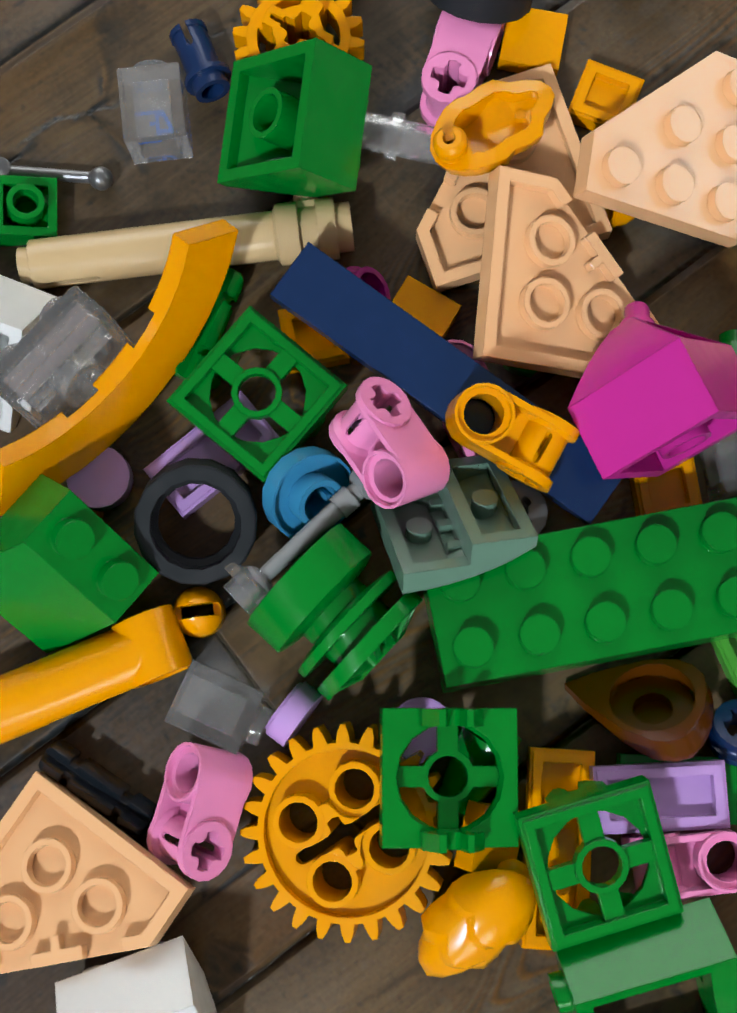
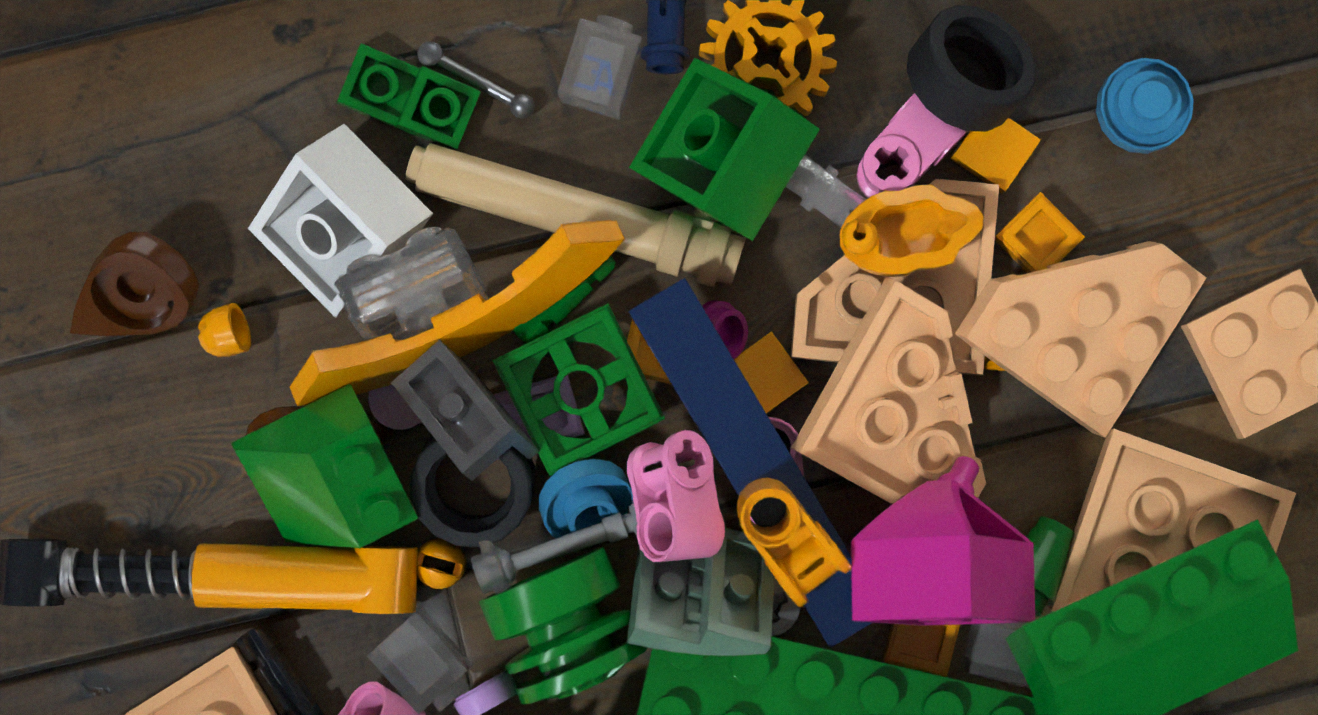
camera: 25 degrees right, 5 degrees up
(154, 453) = (460, 410): none -> flat silver panel

